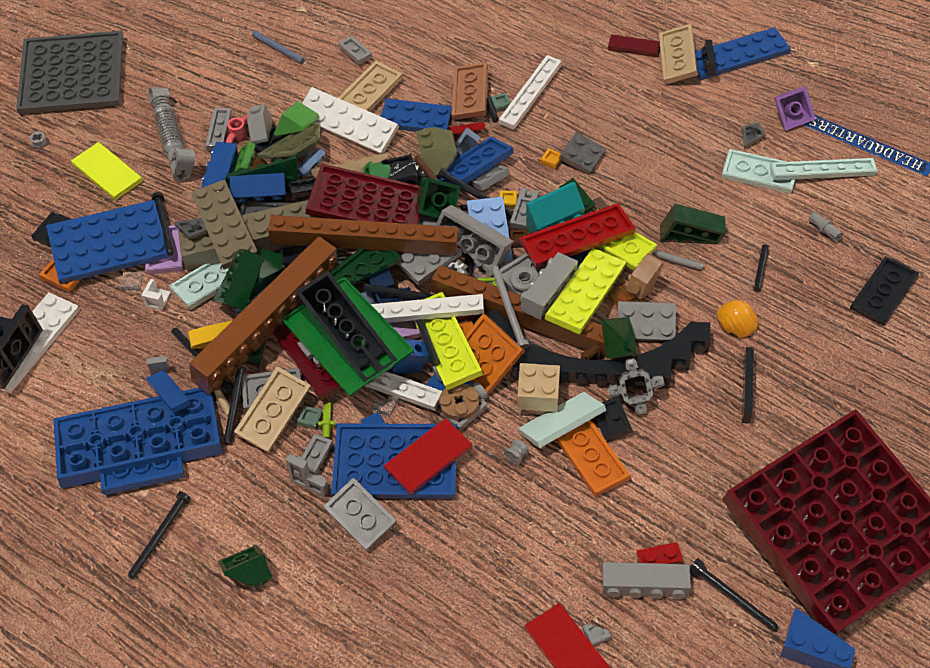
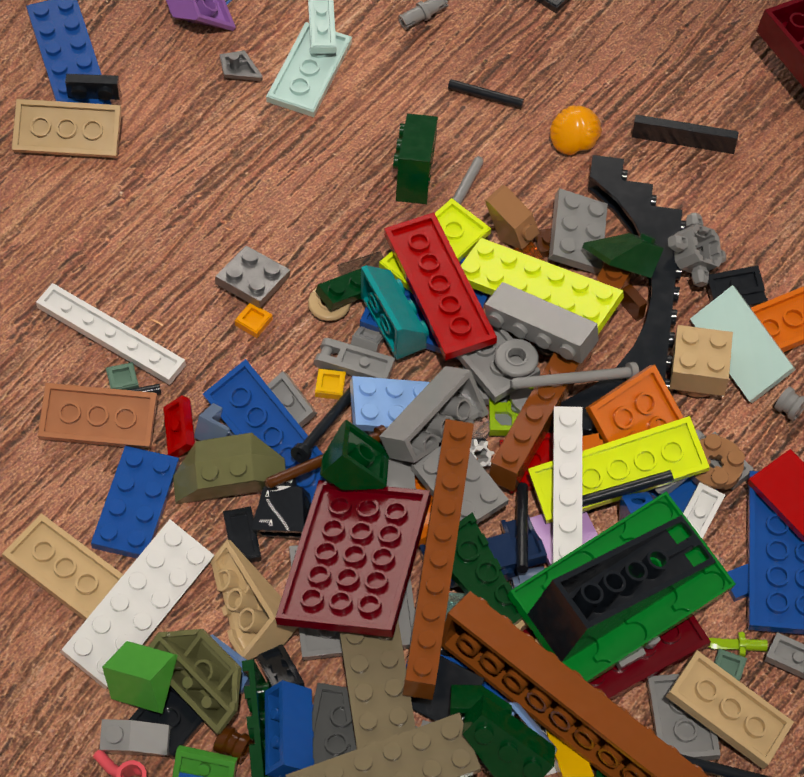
camera: 90 degrees left, 5 degrees up
(377, 169) = (273, 554): green brick -> none
(515, 236) = (409, 371): reddish brown tile -> none
(633, 45) = (27, 188): dark red tile -> none

